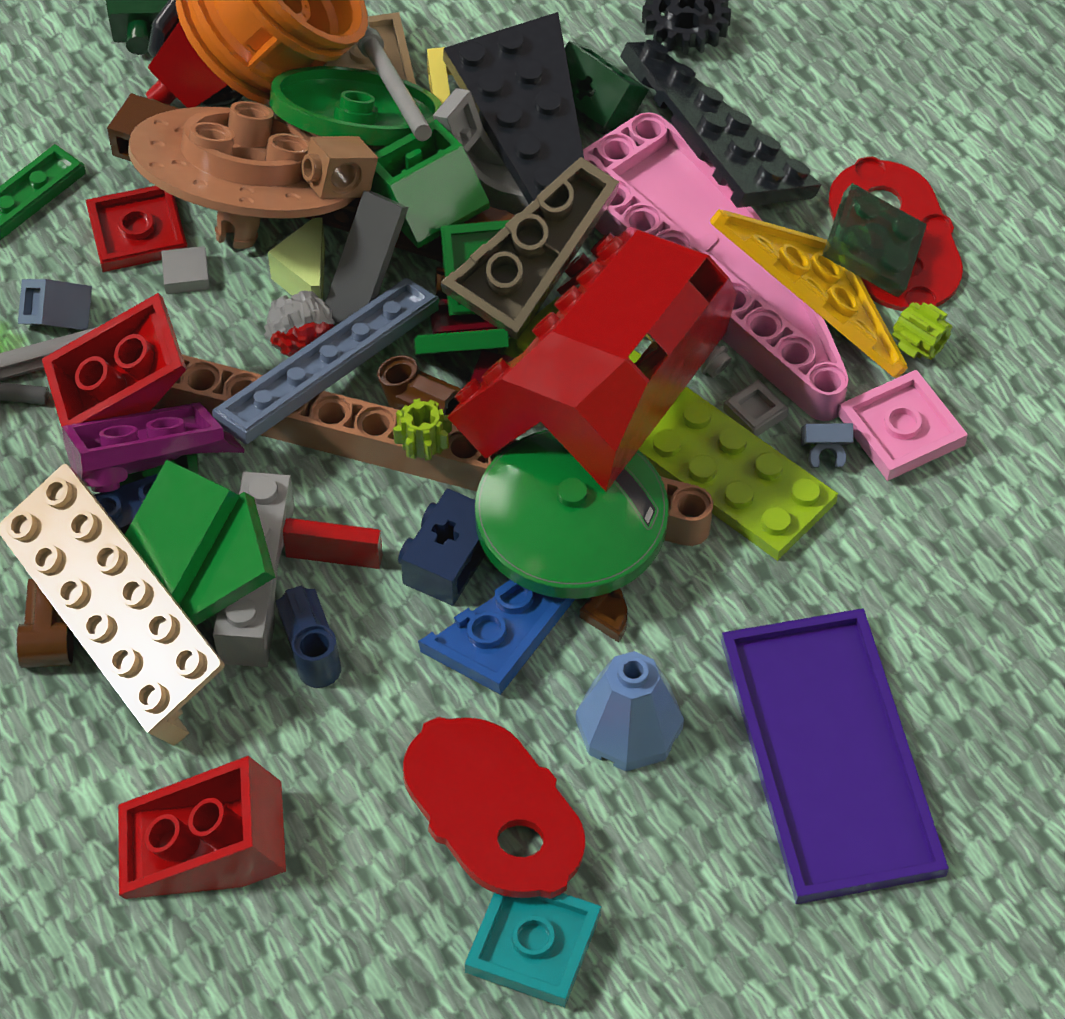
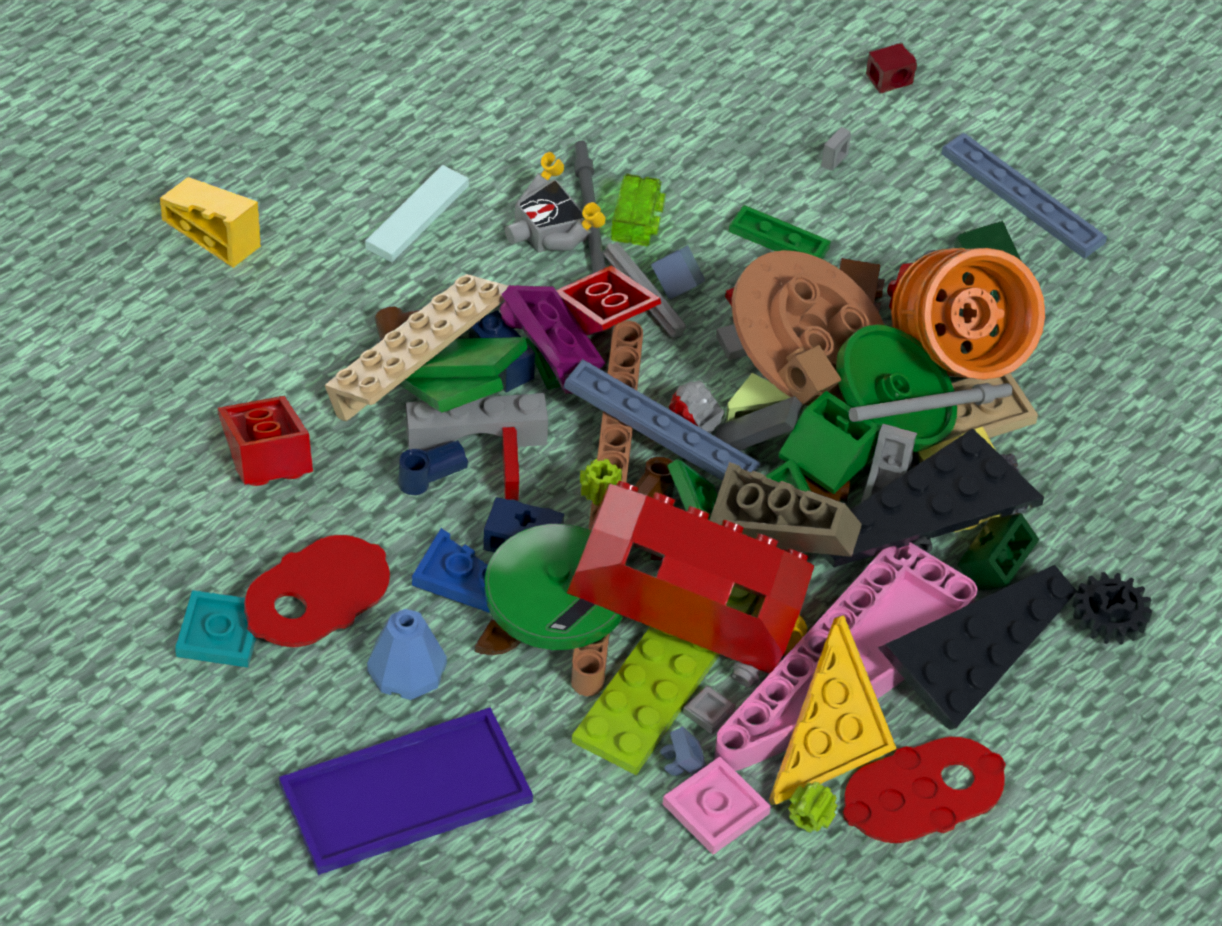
camera: 75 degrees right, 5 degrees down
(874, 240) = (895, 761): clear green plate -> none

